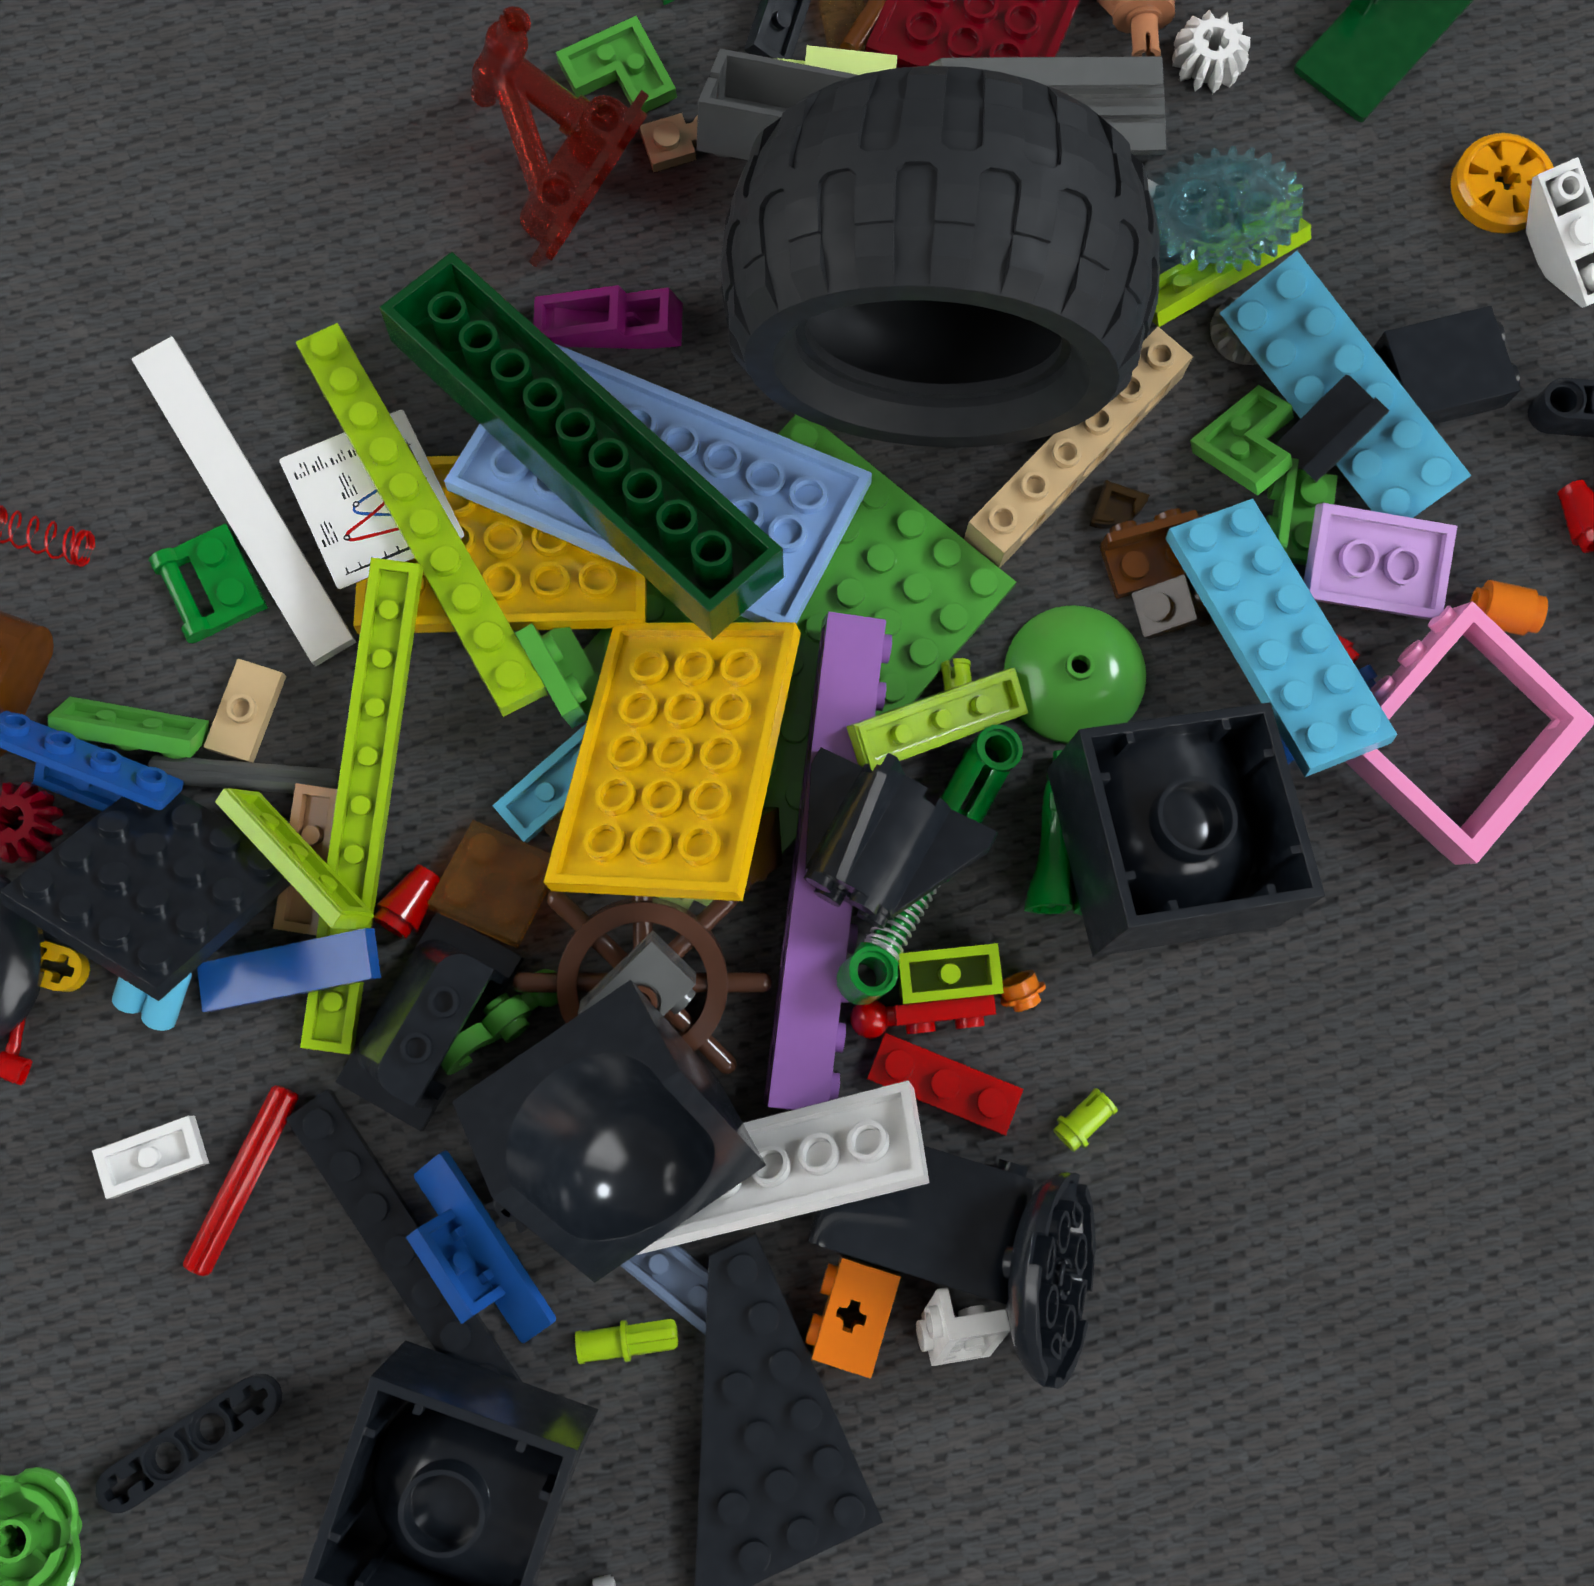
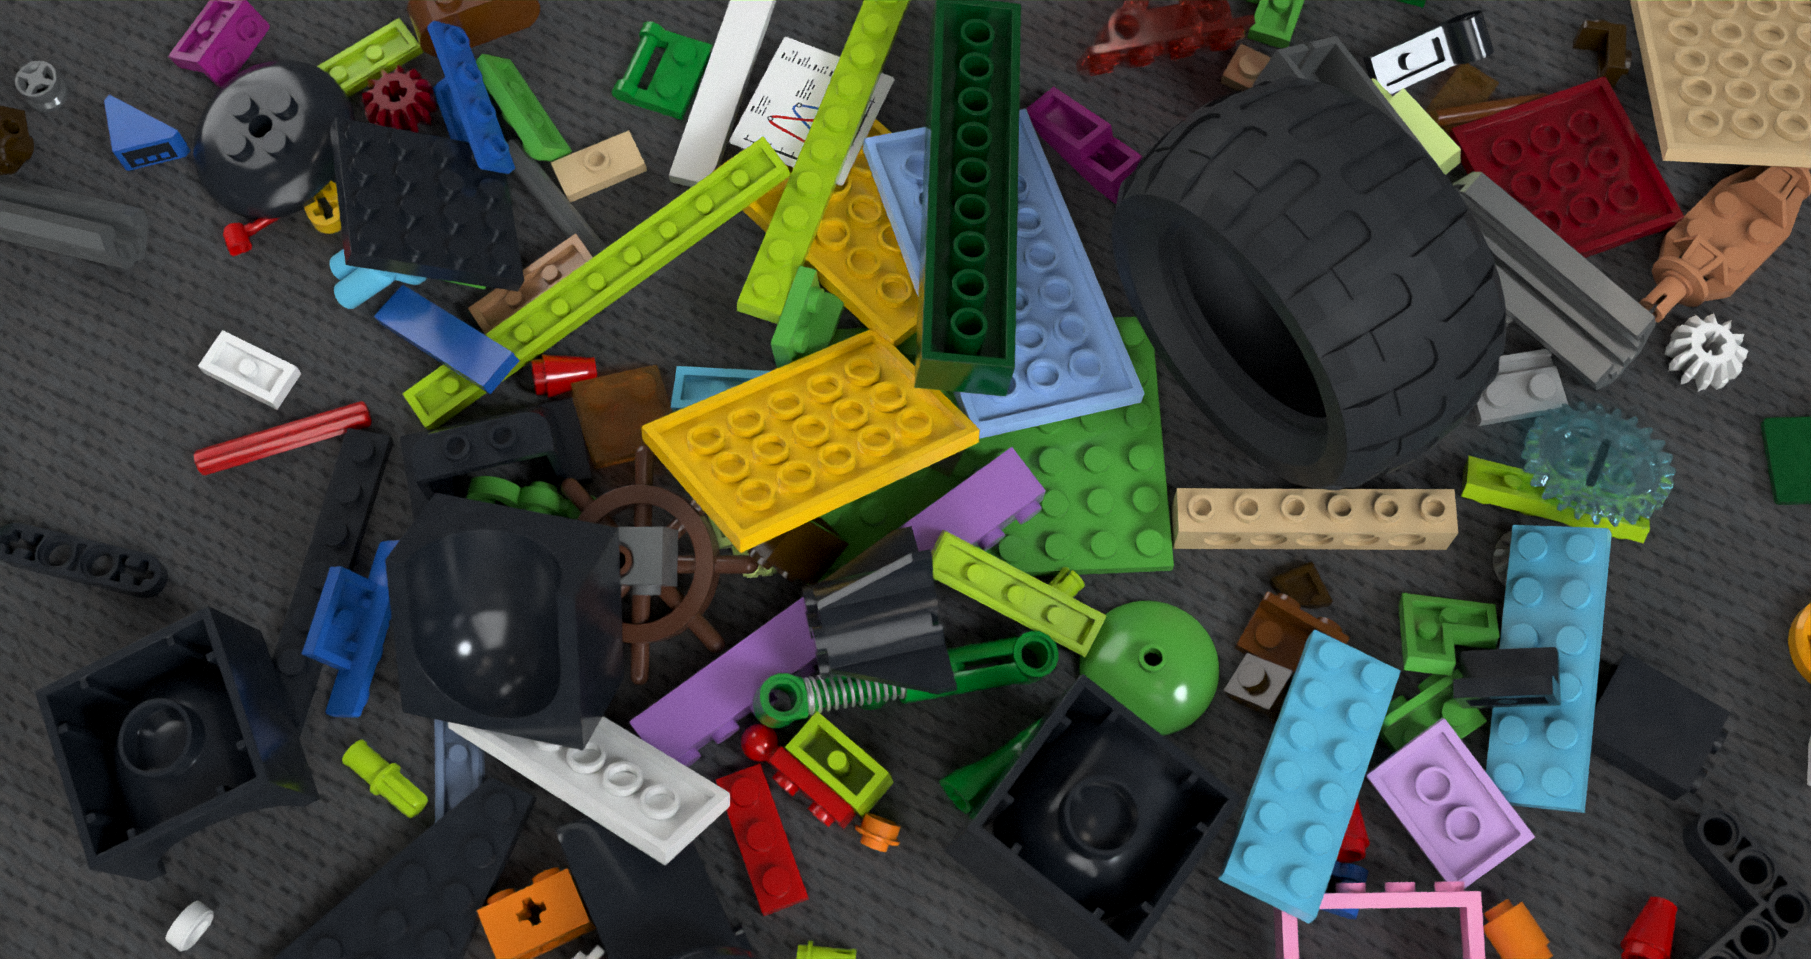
camera: 50 degrees right, 10 degrees down
(295, 859) = (521, 273): lime tile -> none

